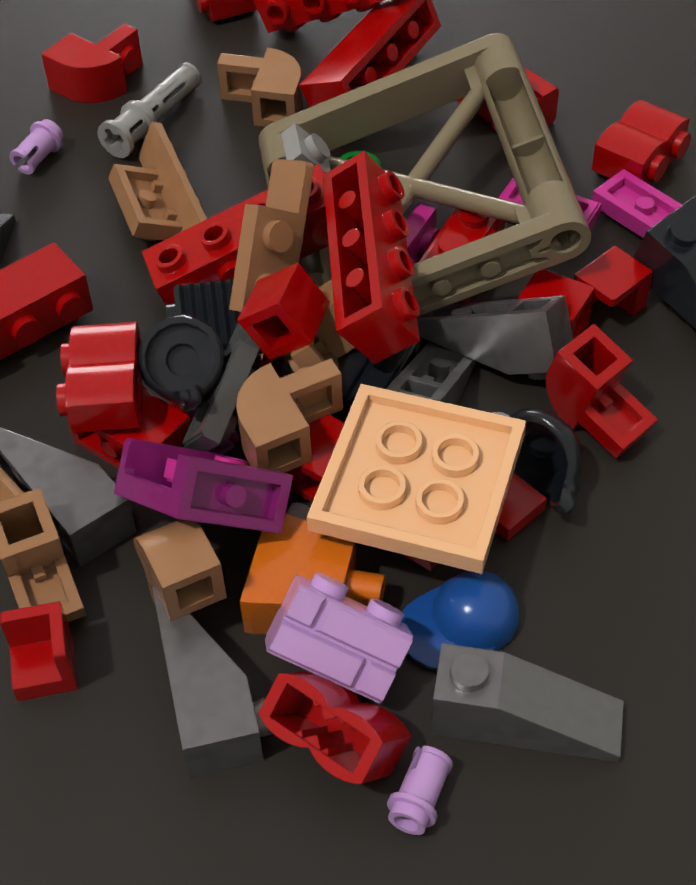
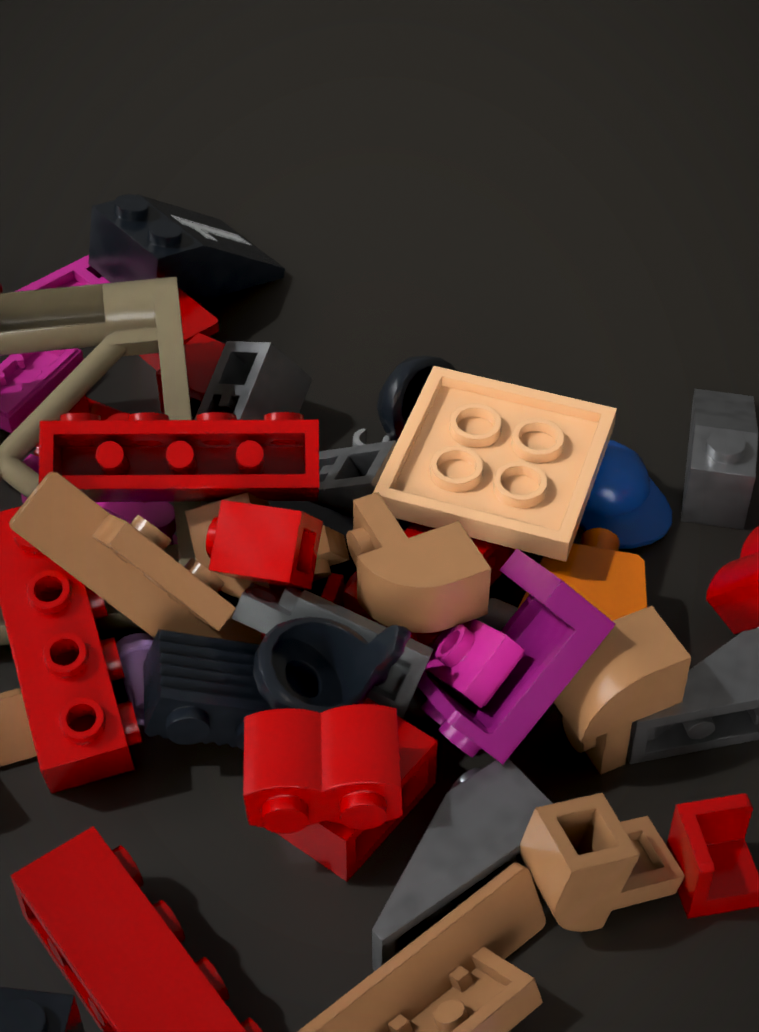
camera: 90 degrees left, 5 degrees down
(339, 636) = (686, 553): lavender brick -> none
(588, 392) = (341, 348): red brick -> none

